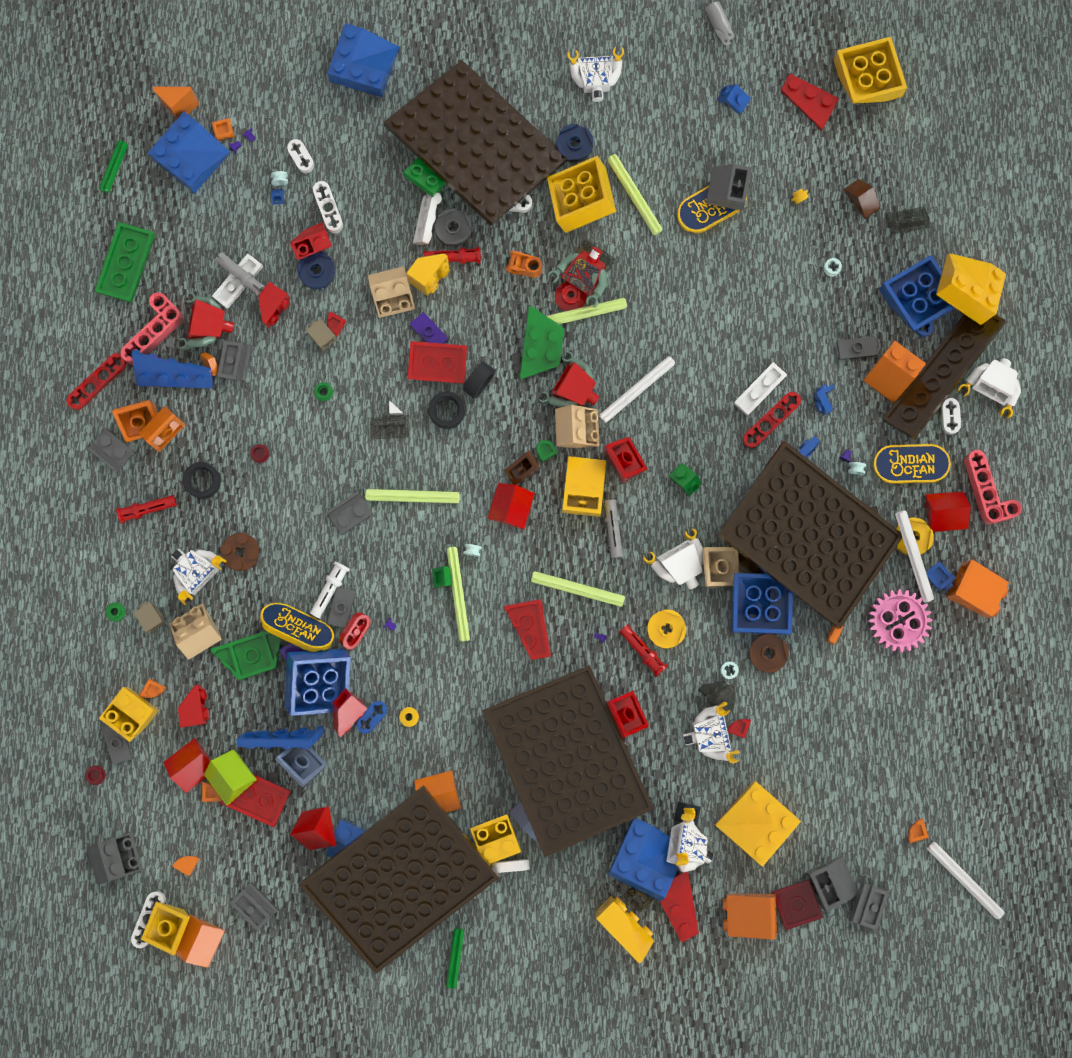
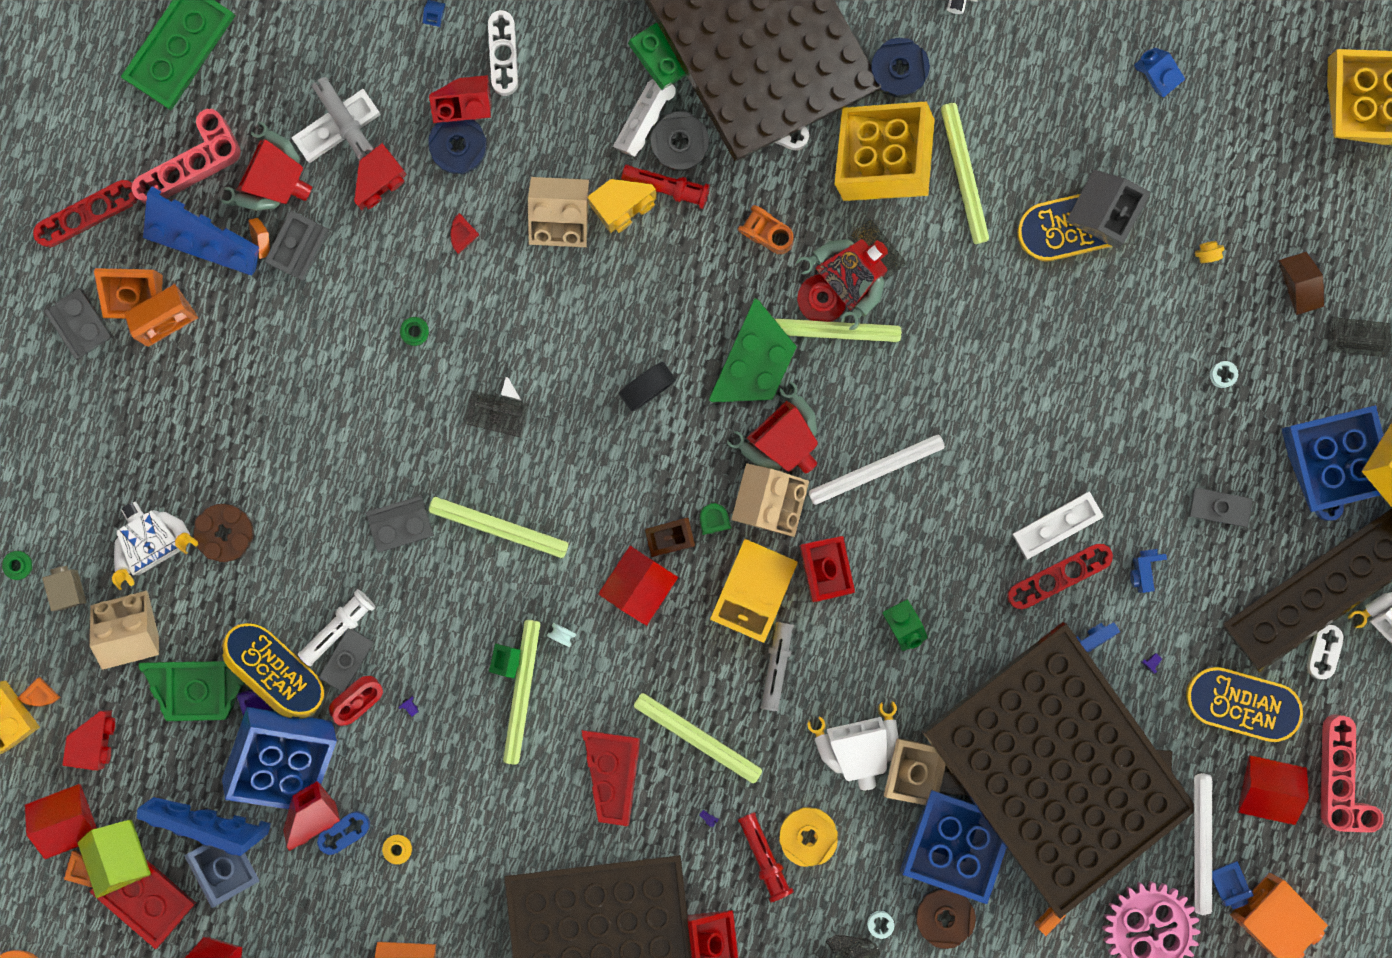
camera: 15 degrees right, 5 degrees up
(137, 510) = (91, 426): red pin -> none
(201, 466) = (177, 399): black tyre -> none
(259, 453) = (294, 395): dark red plate -> none
(321, 334) = (435, 244): dark tan brick -> none
(428, 330) = (596, 288): dark purple plate -> none
(437, 362) = (594, 339): red plate -> none
(443, 396) = (573, 397): black tyre -> none
(811, 100) = (1275, 110): red wing -> none
(857, 468) = (1161, 687): light aqua bush -> none
(894, 371) = (1262, 563): orange slope -> none
(924, 534) = (1228, 810): yellow plate -> none

